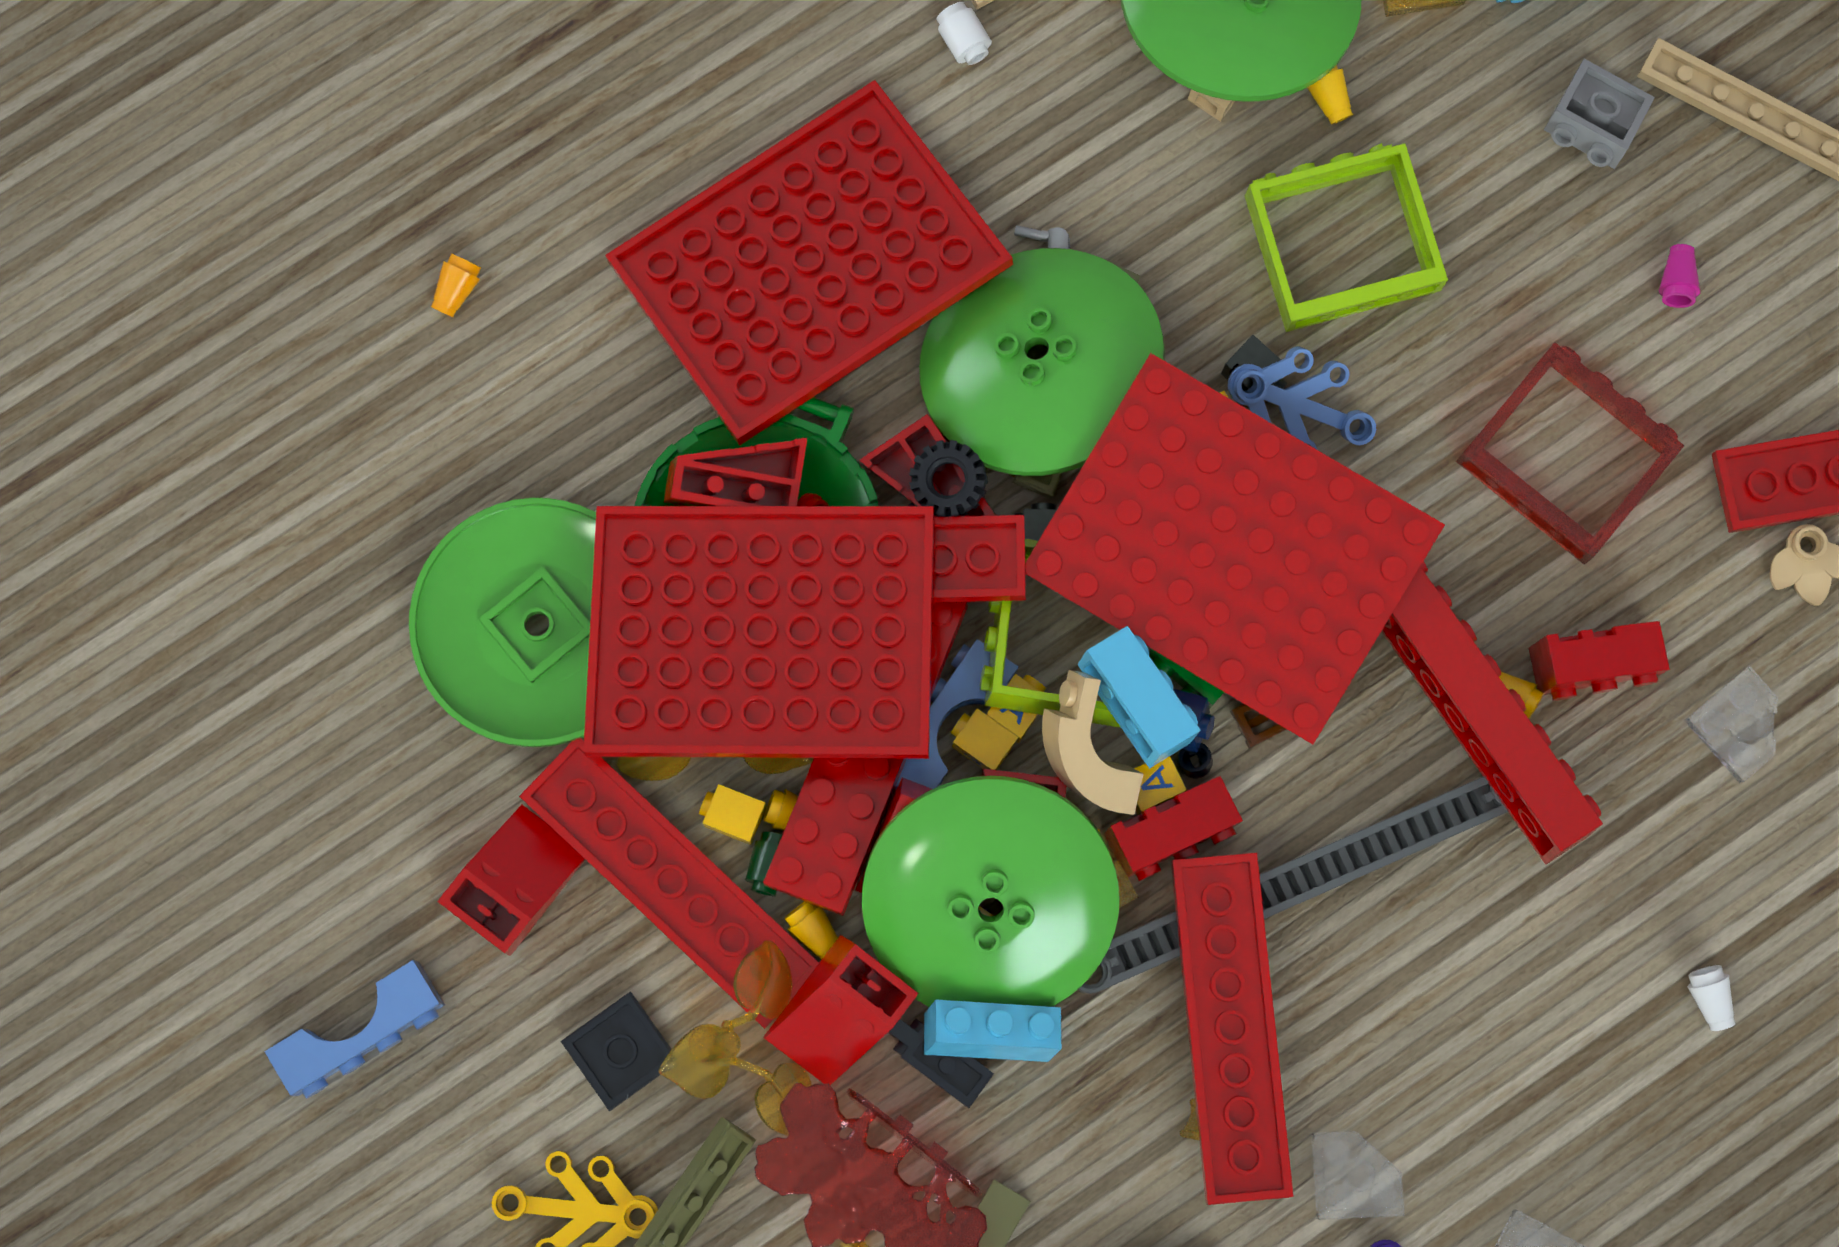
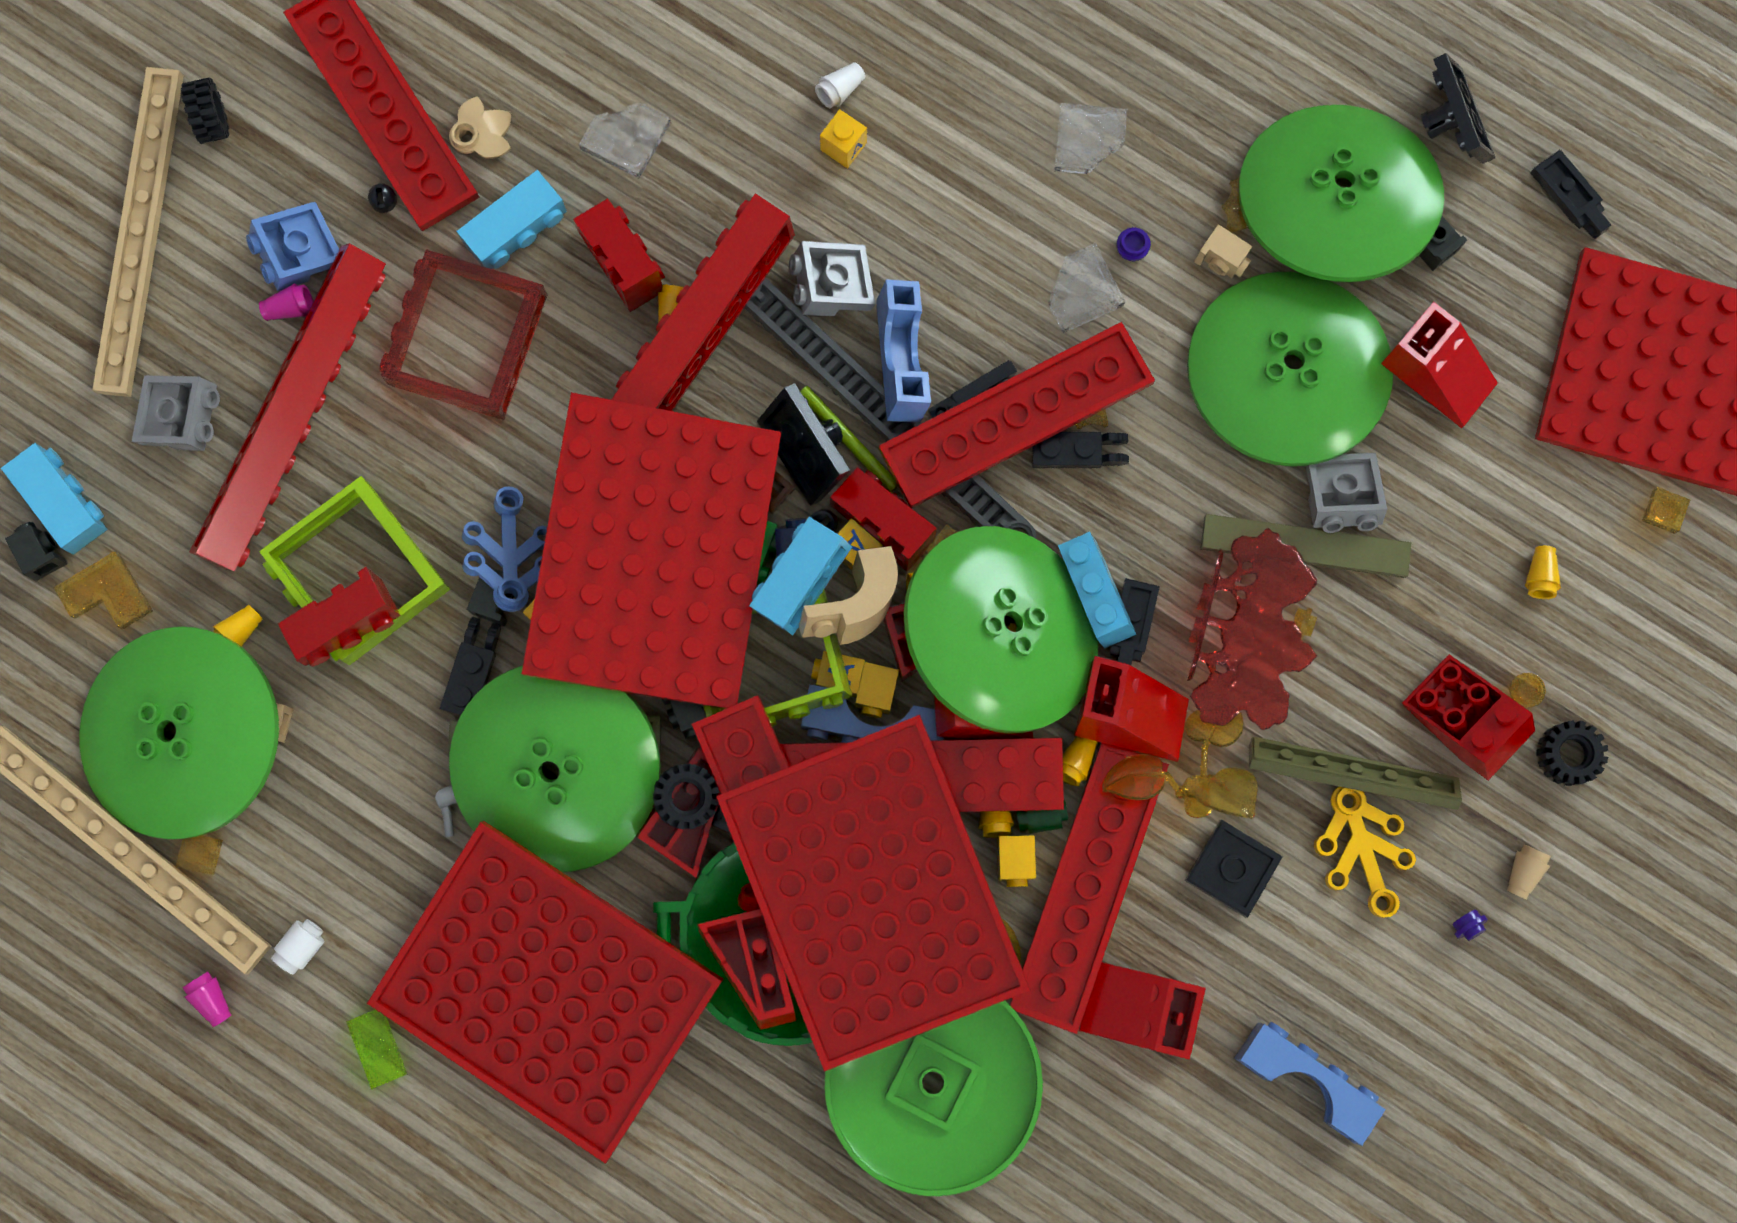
camera: 110 degrees left, 0 degrees up
(824, 74) = (376, 1048): none -> clear neon green plate
(1164, 1087) = (1078, 450): none -> black hinge
(1189, 319) = (470, 667): none -> black hinge
(1285, 1018) = (978, 386): none -> black hinge
(1287, 829) = (851, 440): none -> lime bar
(1292, 196) = (339, 619): none -> red wedge
(1293, 775) = (806, 444): none -> black plate
(1372, 931) = (898, 324): none -> medium blue arch
(1478, 887) = (831, 278): none -> light grey plate
(1558, 234) = (288, 408): none -> red brick
(1643, 971) = (843, 138): none -> yellow brick
(1683, 556) = (512, 221): none -> medium azure brick
(1745, 307) = (292, 245): none -> medium blue plate
(1768, 432) = (389, 198): none -> black hinge

